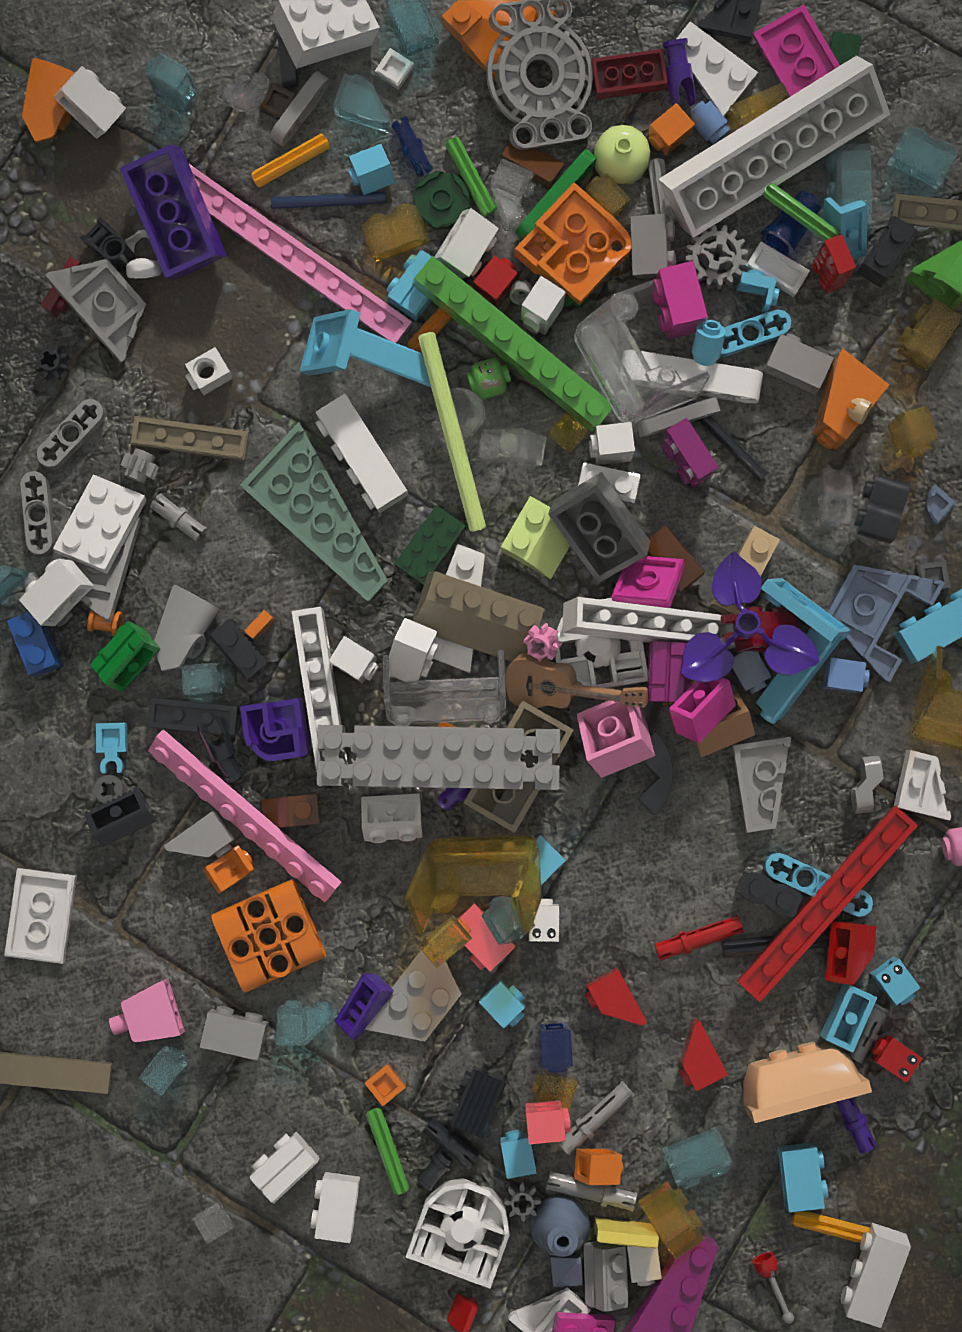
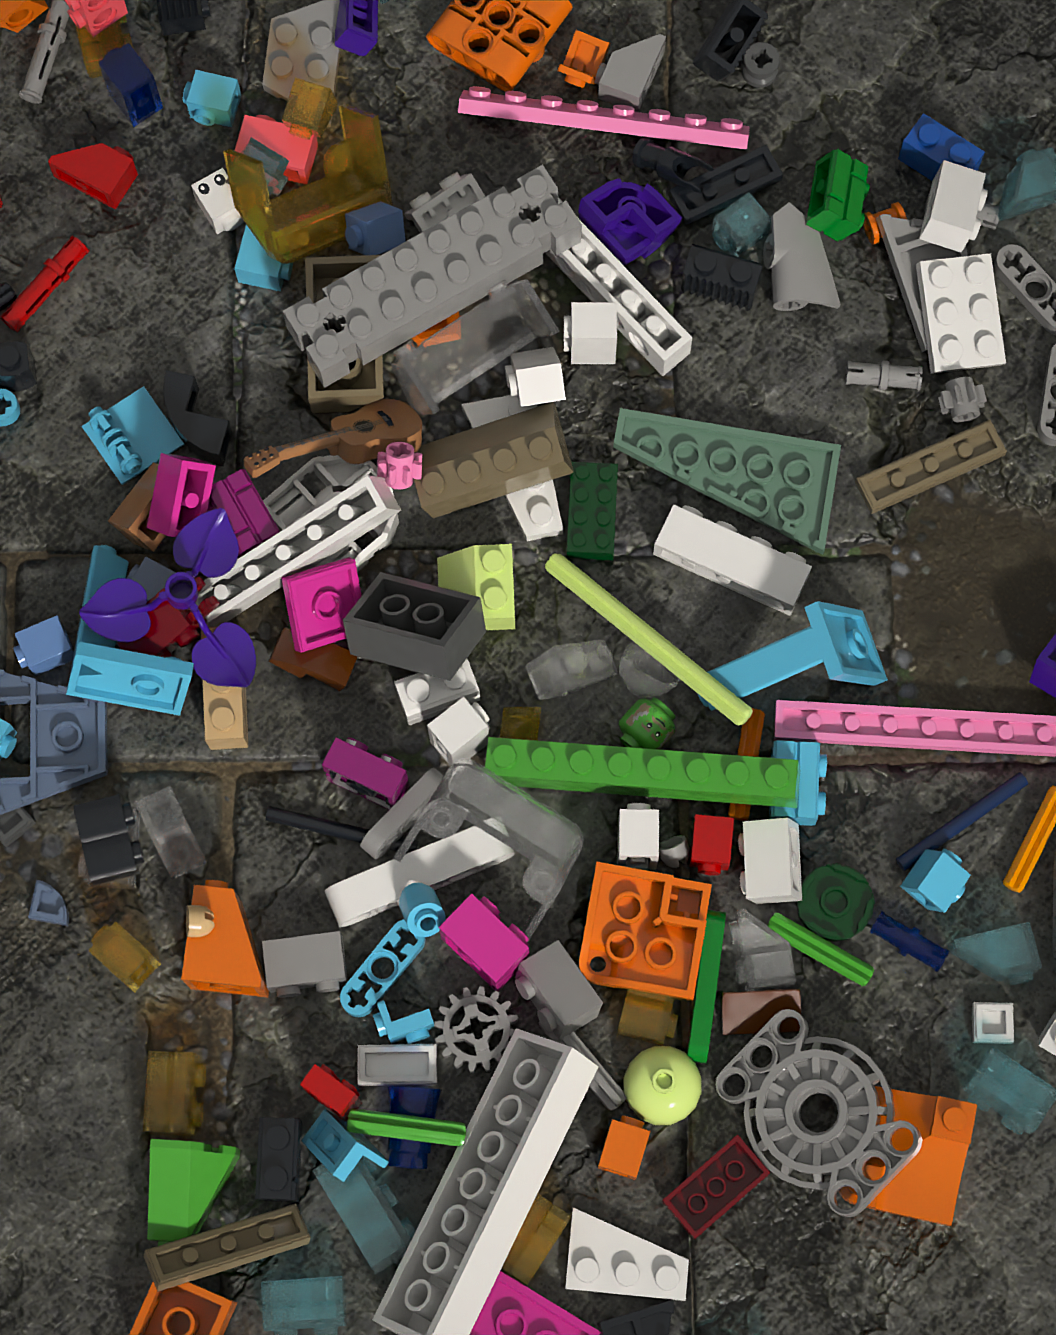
camera: 145 degrees right, 10 degrees down
(111, 740) = (791, 111): medium azure plate -> none
(209, 359) = (960, 560): white brick -> none
(260, 625) = (718, 315): orange tile -> none
(293, 810) = (559, 150): reddish brown slope -> none
(395, 232) = (860, 825): clear yellow brick -> none
(452, 829) = (374, 228): none -> medium blue brick
(614, 737) = (258, 415): bright pink brick -> none
(679, 71) = (660, 1227): dark purple piece -> none
(701, 790) = (131, 434): none -> medium azure hinge
(709, 122) = (584, 1188): medium blue brick -> none
(760, 779) = (74, 482): light grey wing -> none

